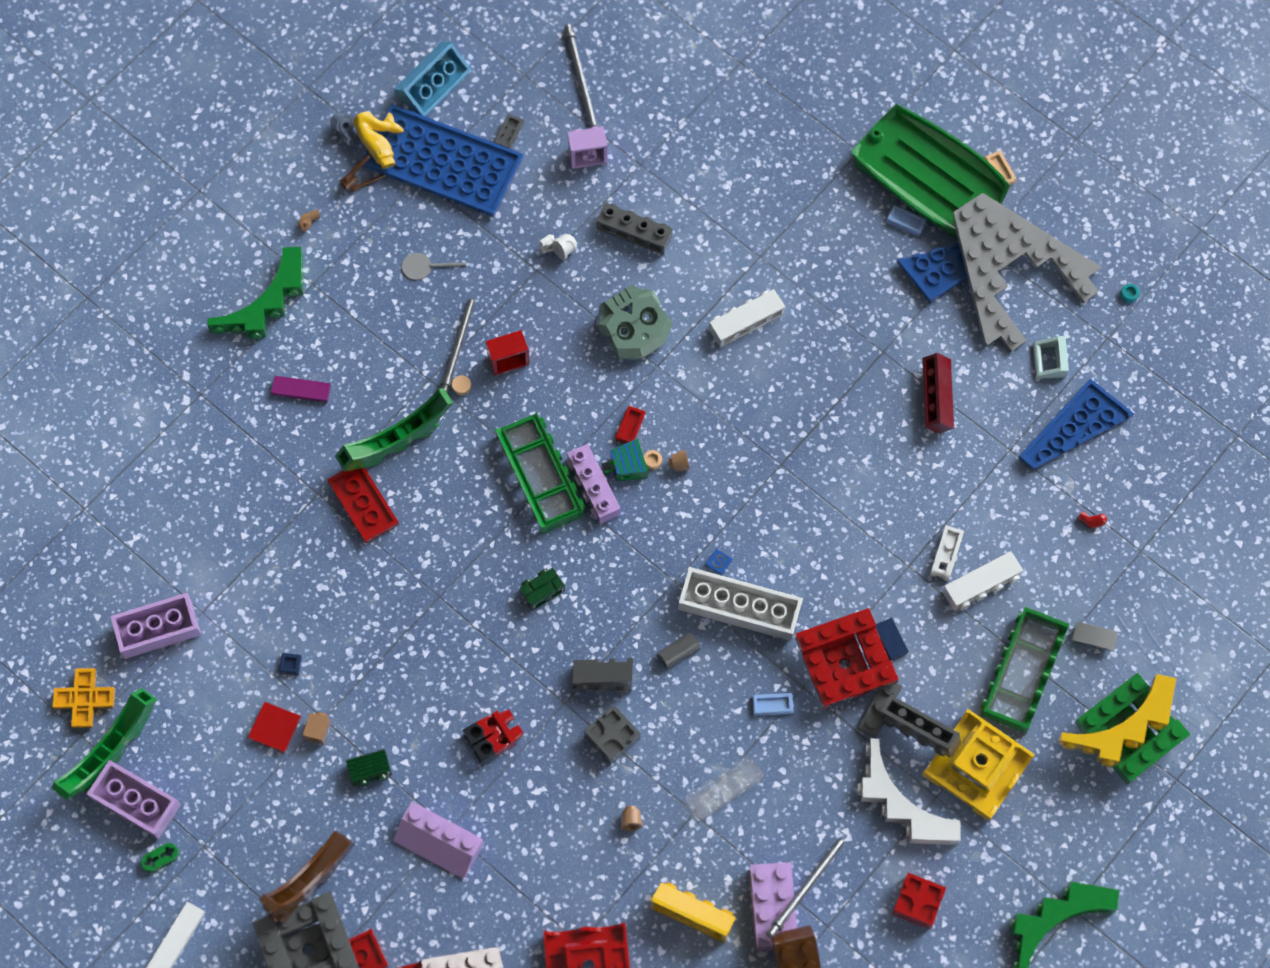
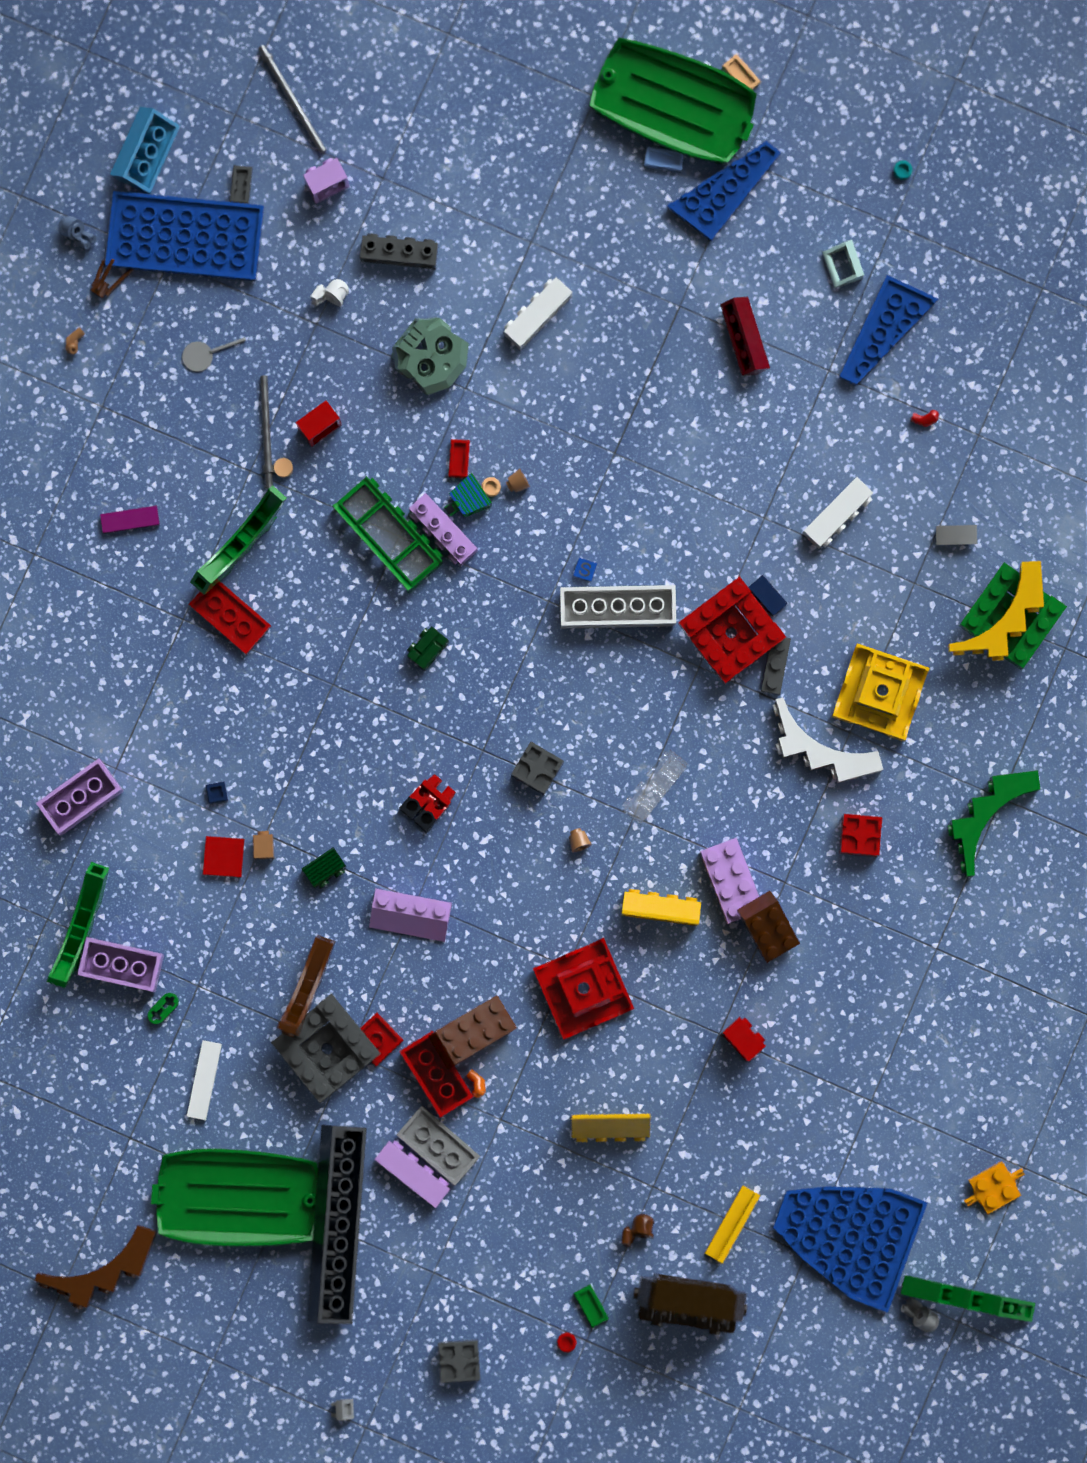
camera: 15 degrees left, 15 degrees up
(84, 698) = (37, 884): light orange plate -> none
(271, 303) = (58, 462): green arch -> none
(374, 142) = (112, 240): yellow piece -> none
(603, 676) = (511, 715): dark grey wedge -> none
(679, 650) = (573, 668): dark grey brick -> none
(772, 704) = (676, 692): light blue tile -> none
(778, 924) = (741, 899): flat silver bar -> none
(920, 726) = (818, 675): dark grey brick -> none
(947, 552) = (797, 494): white plate -> none
(994, 238) = (755, 157): light grey wing -> none
(1024, 669) = (899, 587): clear window -> none

